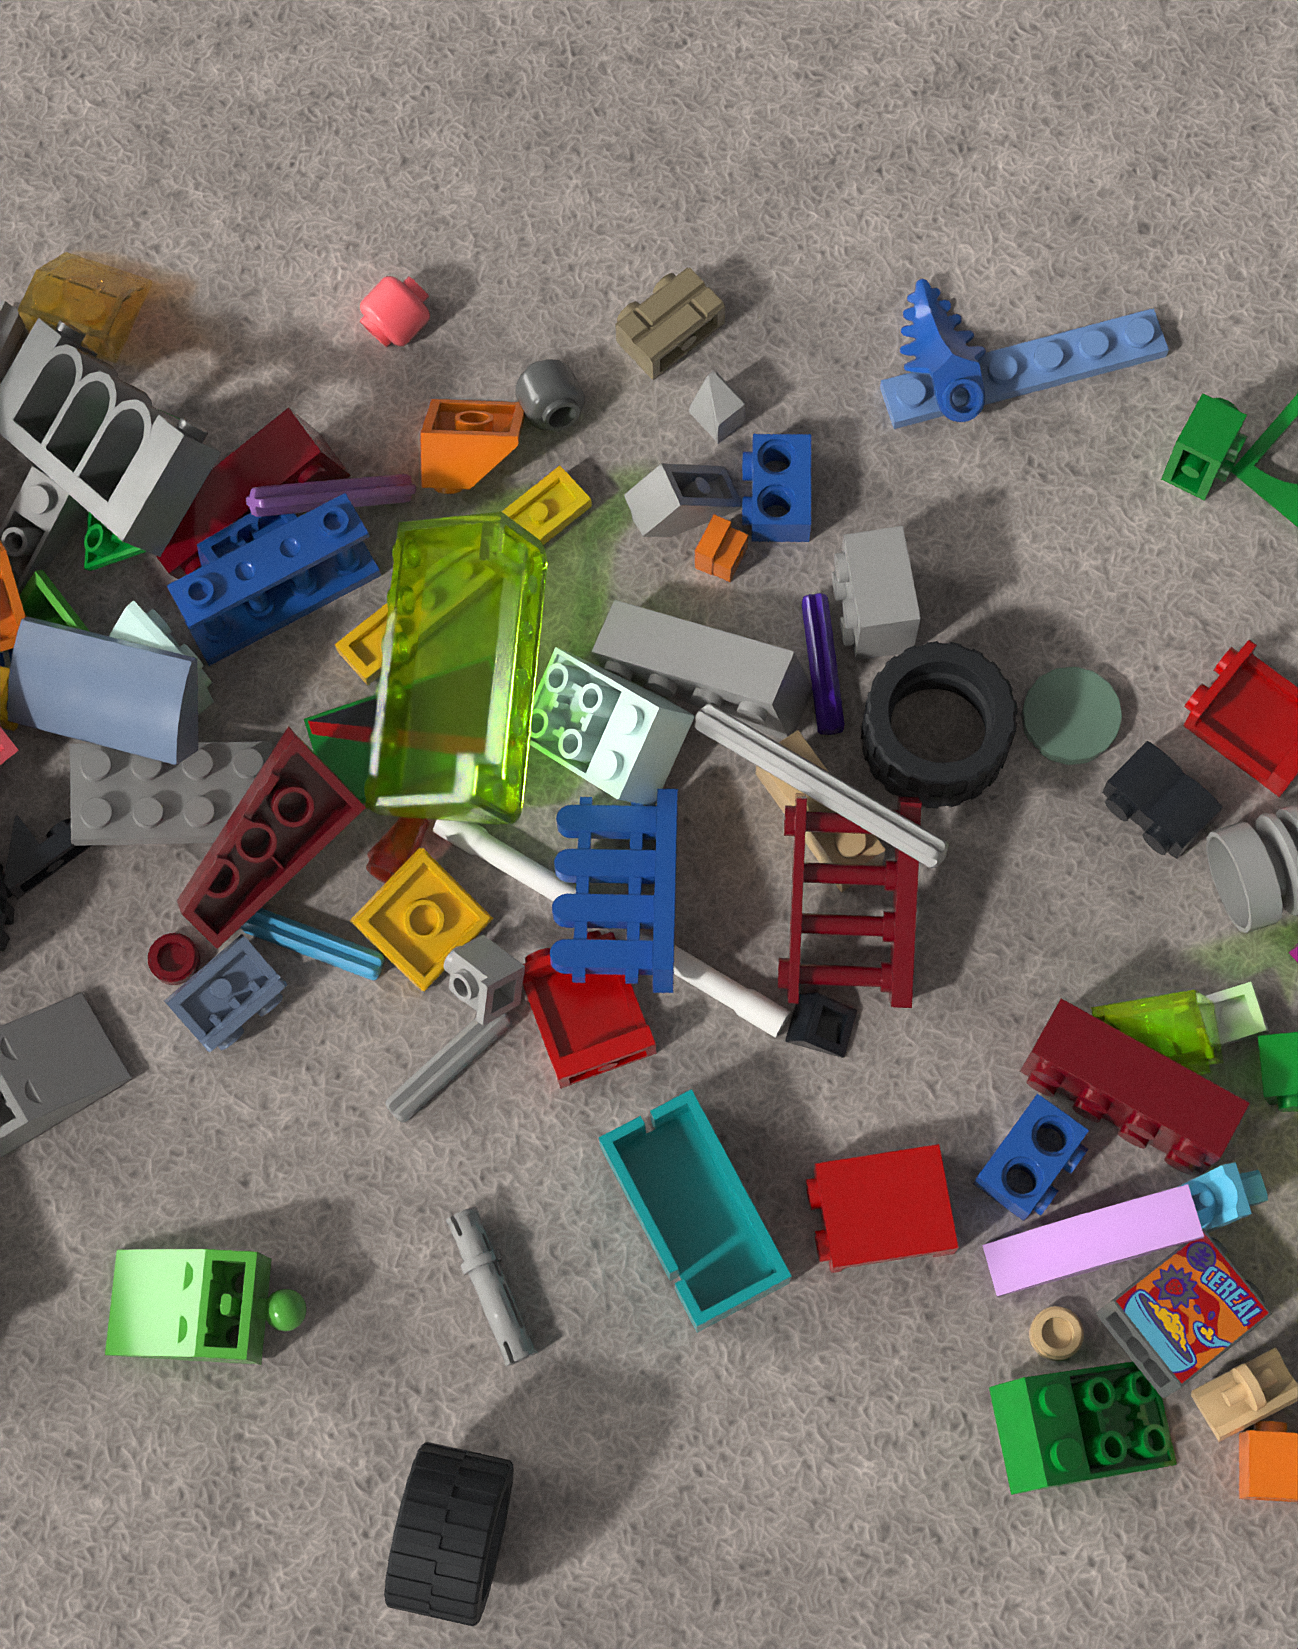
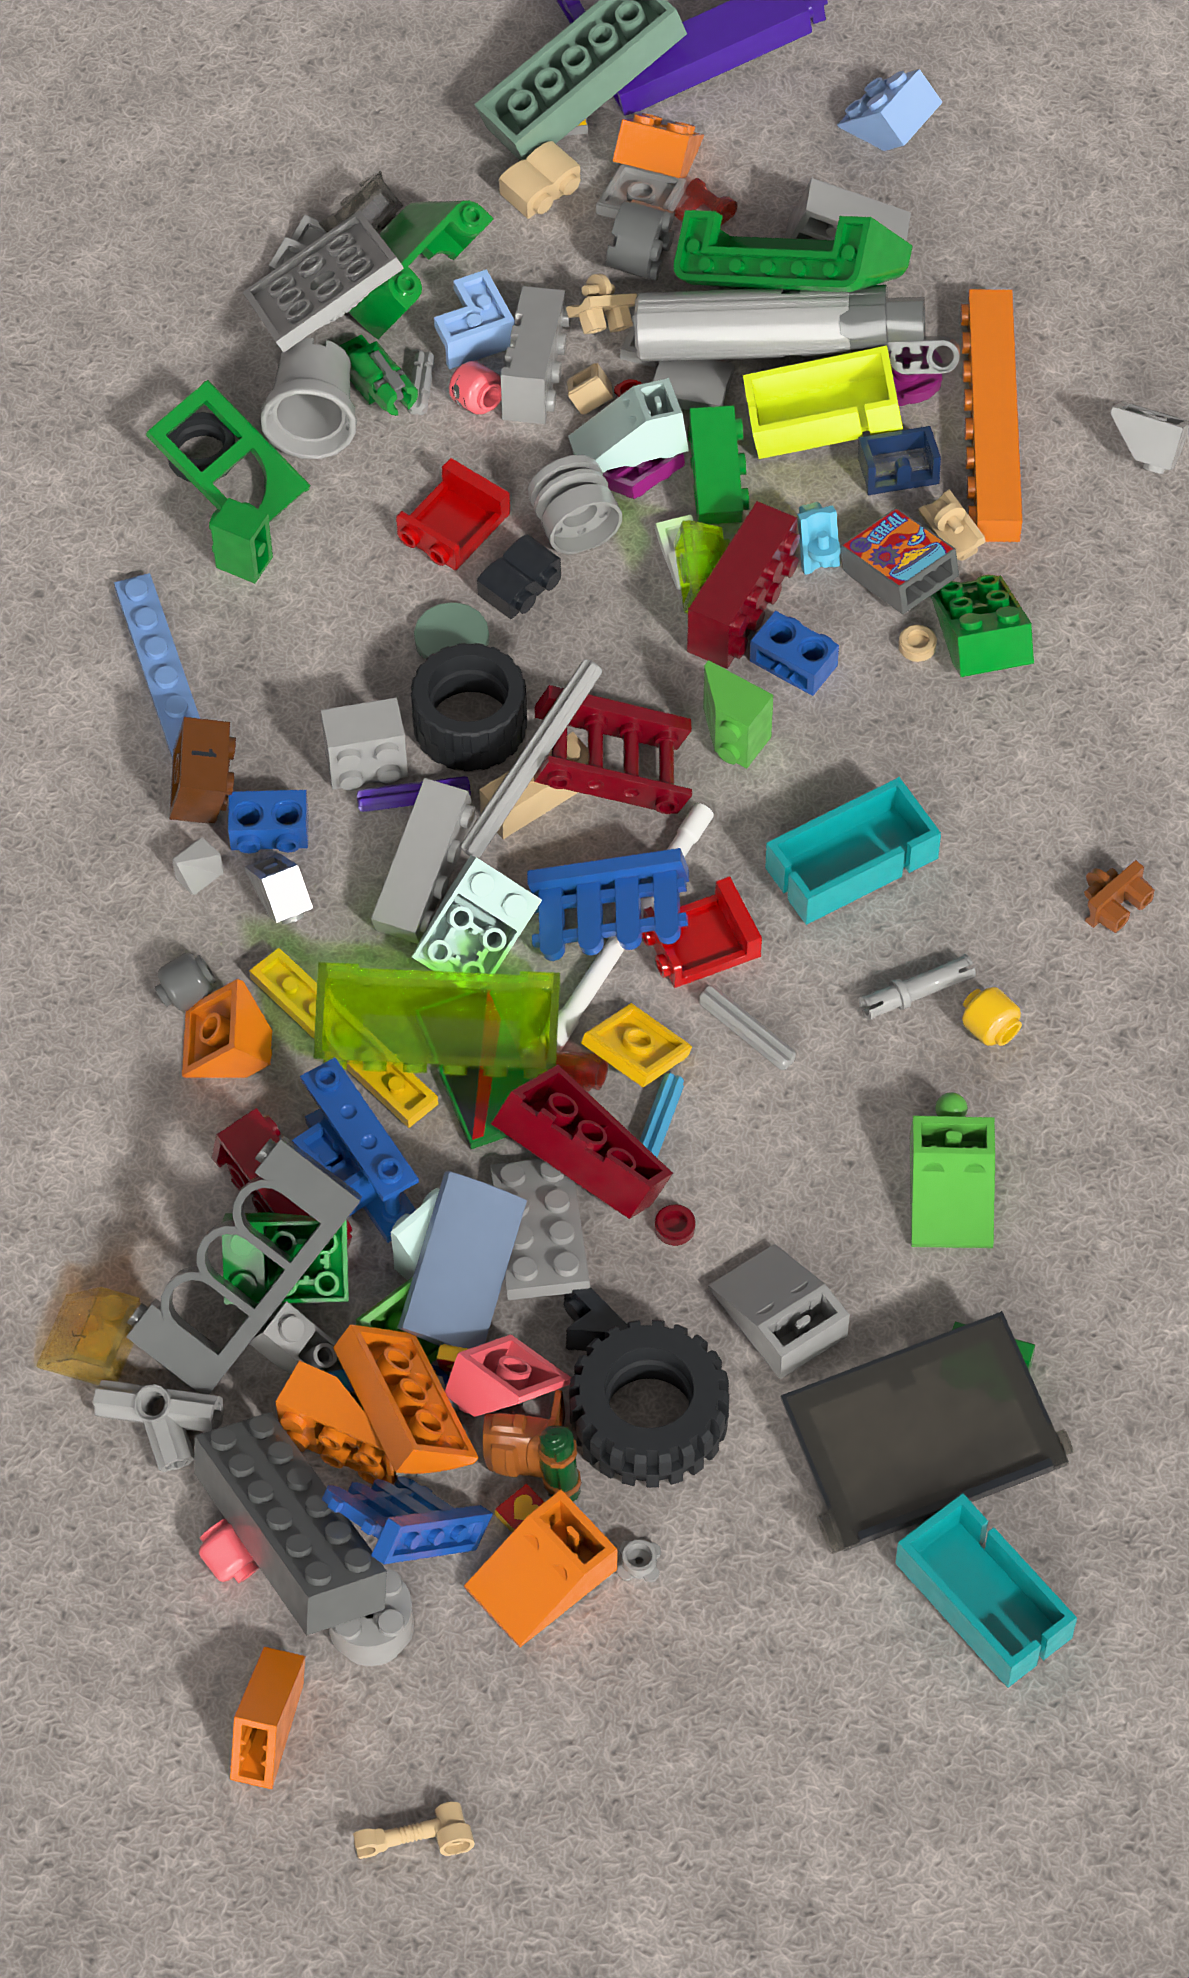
camera: 95 degrees left, 15 degrees down
(227, 995) = (708, 1174): sand blue bracket -> none
(310, 495) = (287, 1112): medium lavender axle -> none
(395, 311) = (106, 1098): coral head -> none
(431, 1379) = (991, 1016): none -> yellow head
(448, 1533) = (1105, 976): black tyre -> none
(485, 978) = (683, 994): light grey brick -> none
(595, 1555) = (1111, 889): none -> dark orange hips
(669, 321) = (120, 901): dark tan brick -> none
(720, 549) = (320, 860): orange piece -> none
(821, 1024) = (705, 787): black slope -> none
(836, 397) = (201, 770): none -> reddish brown brick
(882, 1208) = (840, 740): red panel -> none
(908, 1062) = (736, 715): none -> bright green slope
(943, 352) = (153, 716): blue plant -> none
(1093, 1240) = (854, 611): lavender slope -> none

